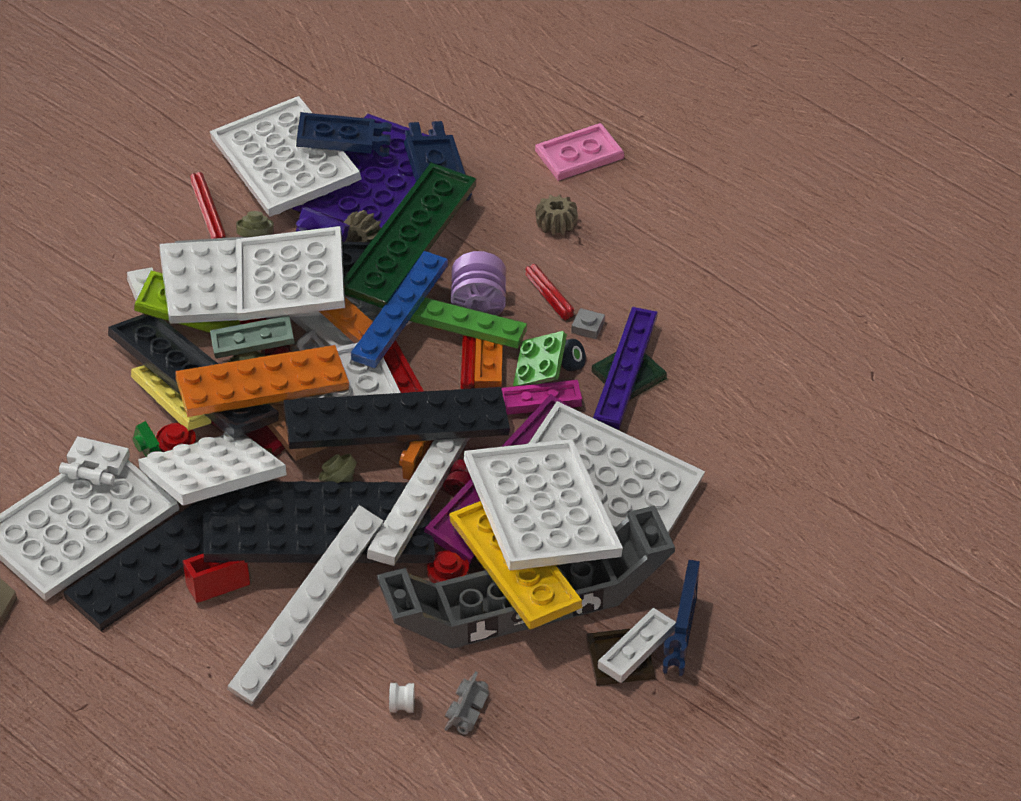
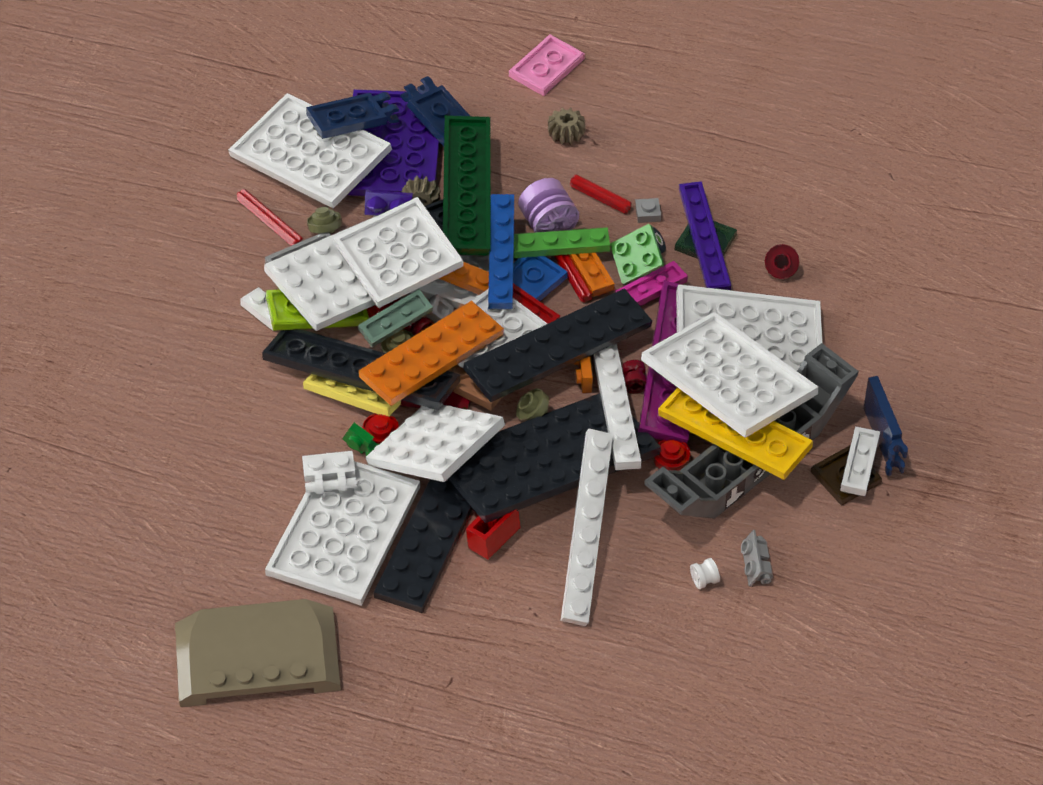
camera: 25 degrees left, 5 degrees up
(428, 348) = (538, 275): none -> blue plate
(690, 418) = (782, 261): none -> dark red plate

